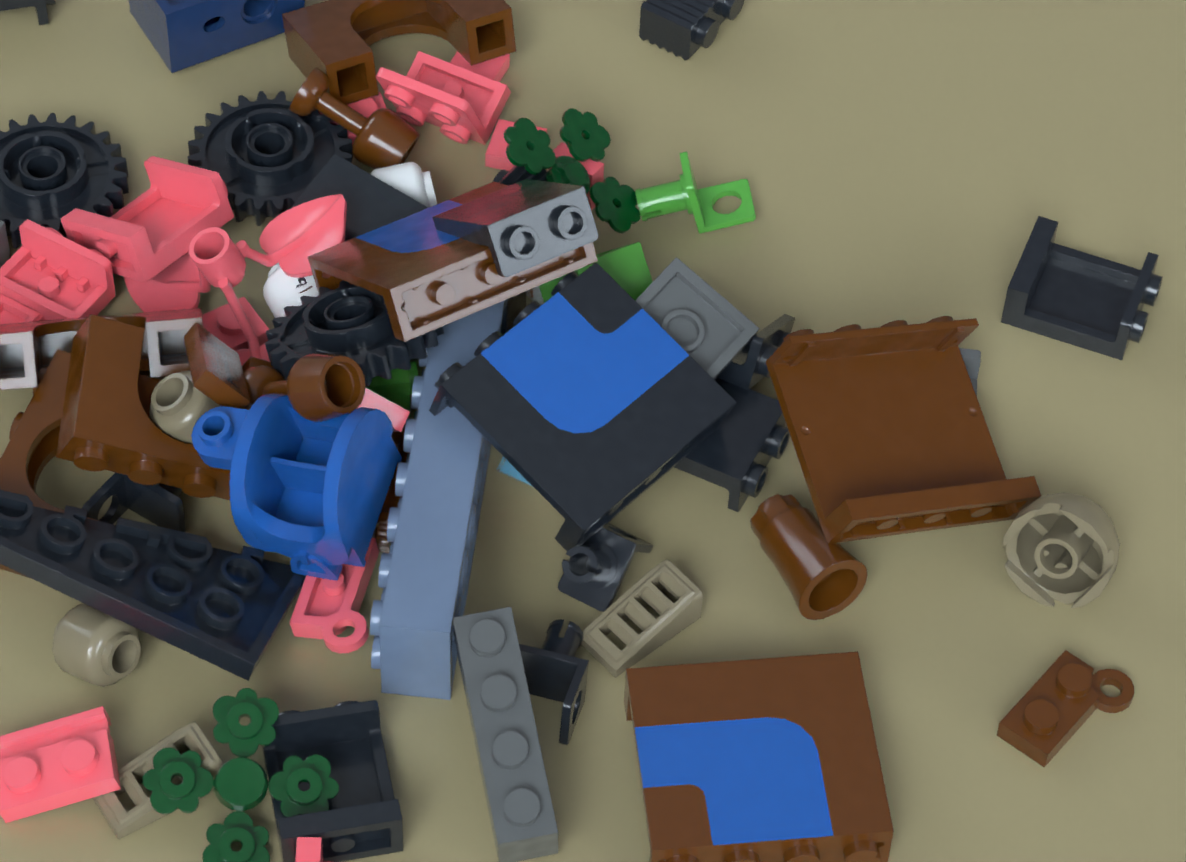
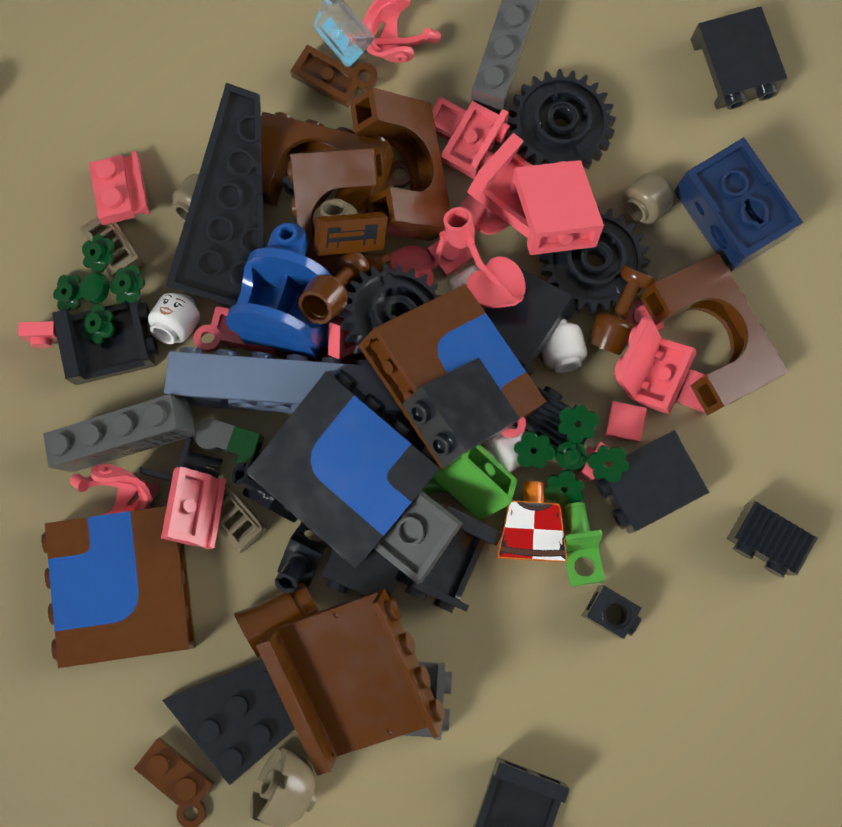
camera: 90 degrees right, 30 degrees up
(183, 91) = (648, 198): none -> dark tan head
(189, 160) = (557, 207): none -> coral panel
(305, 675) = (173, 318): none -> white head
(531, 592) = (219, 436): none -> leg
(577, 744) = (127, 484): none -> coral helmet
(625, 103) = (656, 484): none -> black panel
(646, 638) = (193, 508): none -> coral plate
(674, 230) = (532, 528): none -> torso
(713, 520) = (299, 560): none -> black bracket
(792, 172) = (597, 607): none -> black brick
(952, 614) = (234, 718): none -> black wing

